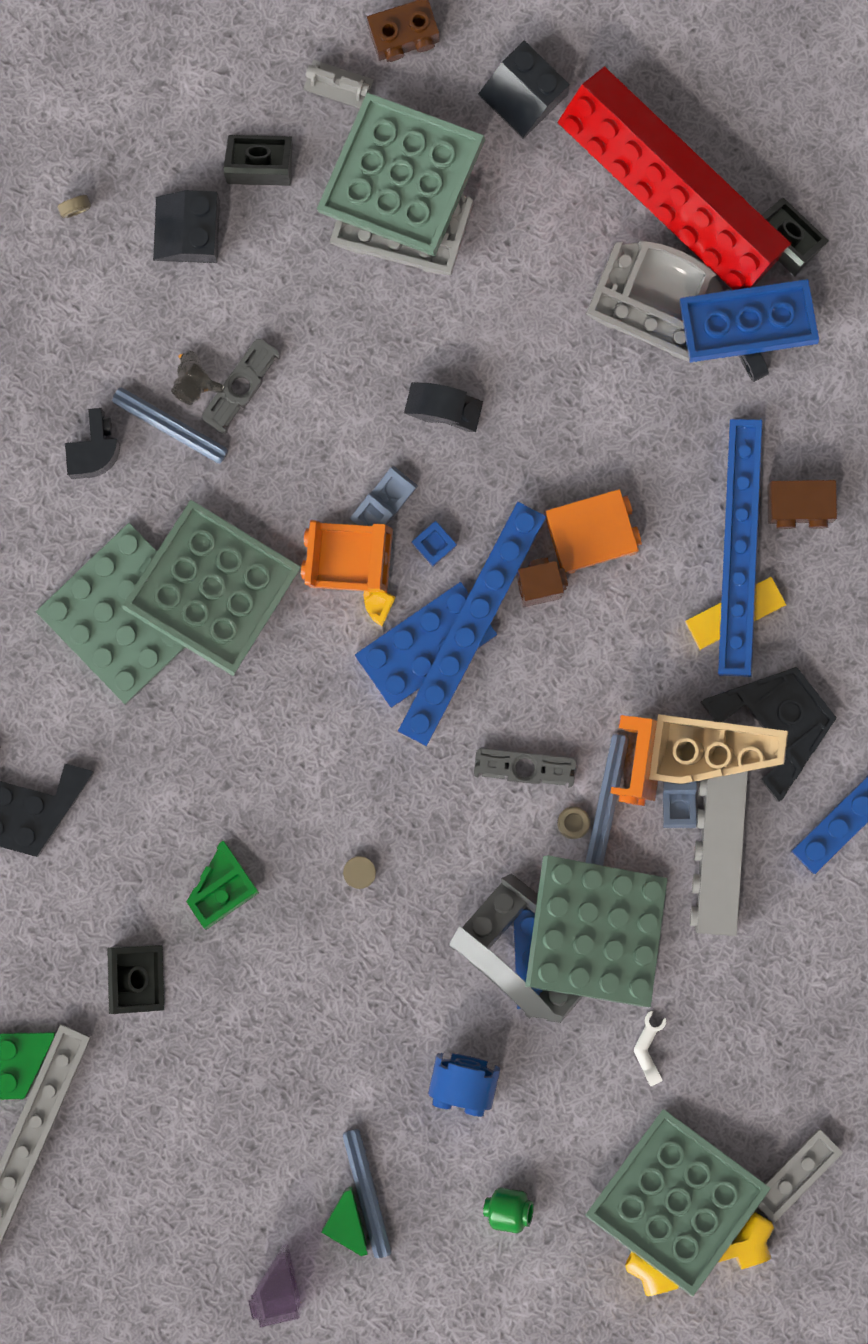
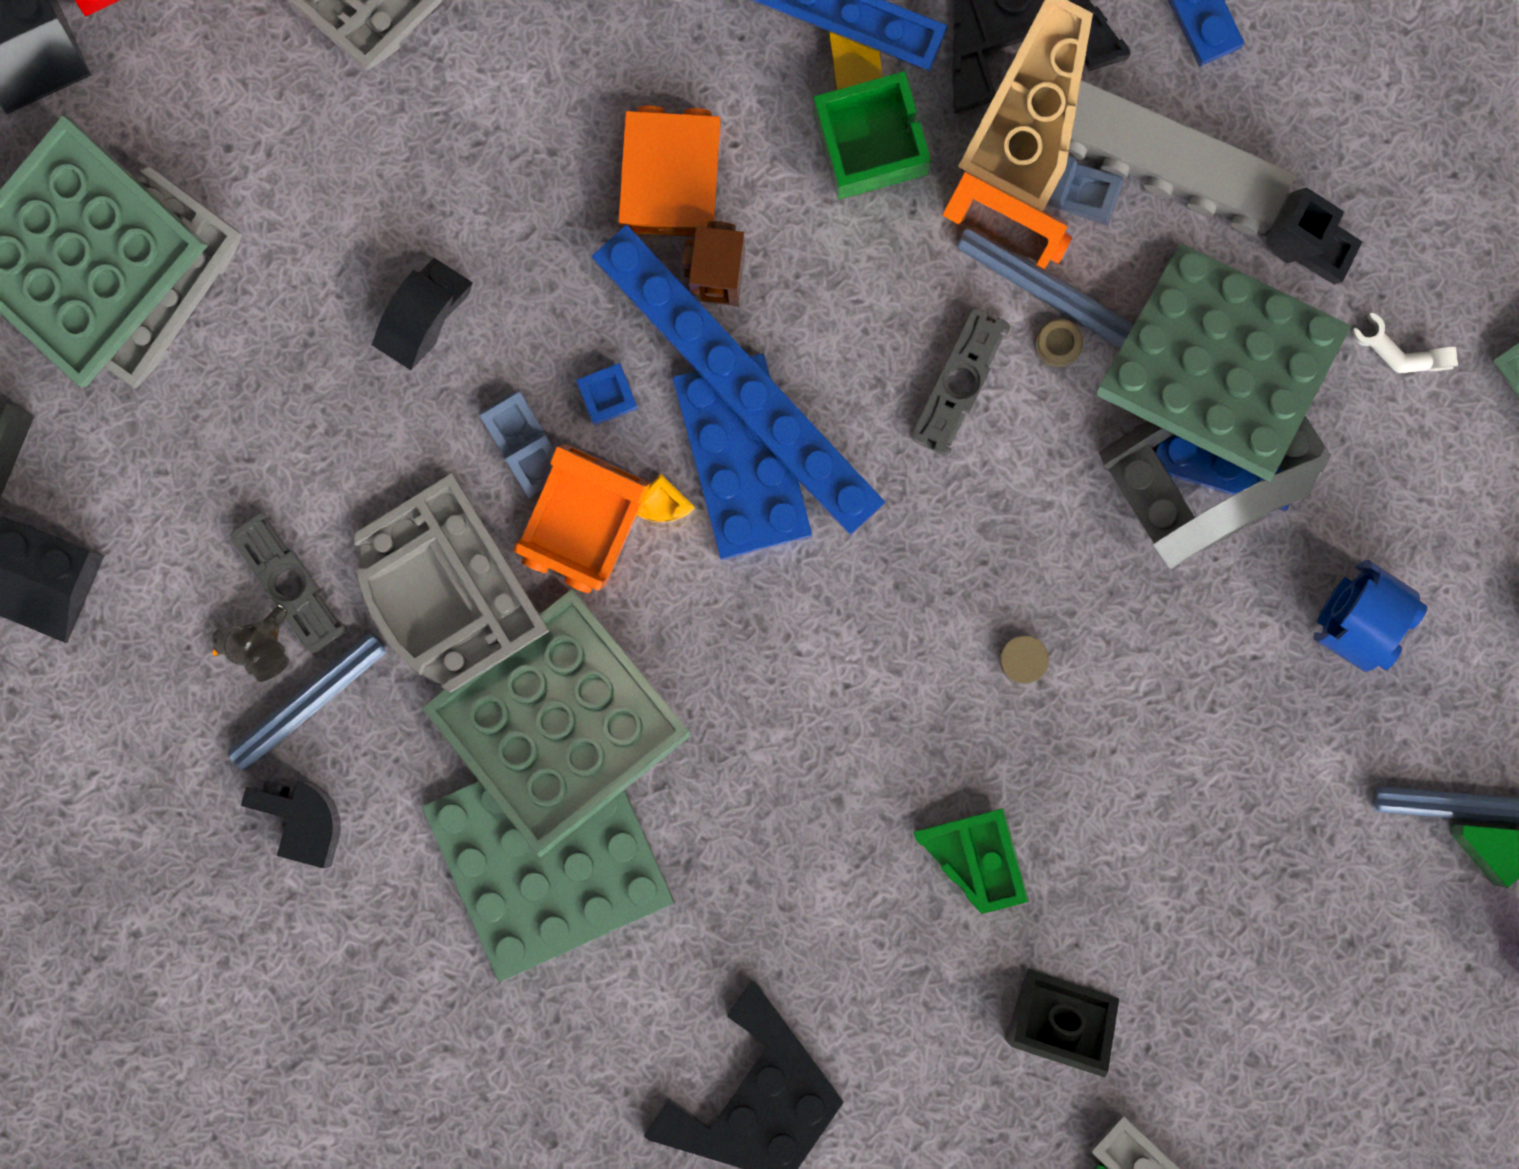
camera: 65 degrees left, 0 degrees up
(272, 485) = (443, 587): none -> light grey slope
(661, 651) = (868, 137): none -> green piece
(700, 962) = (1310, 234): none -> black brick

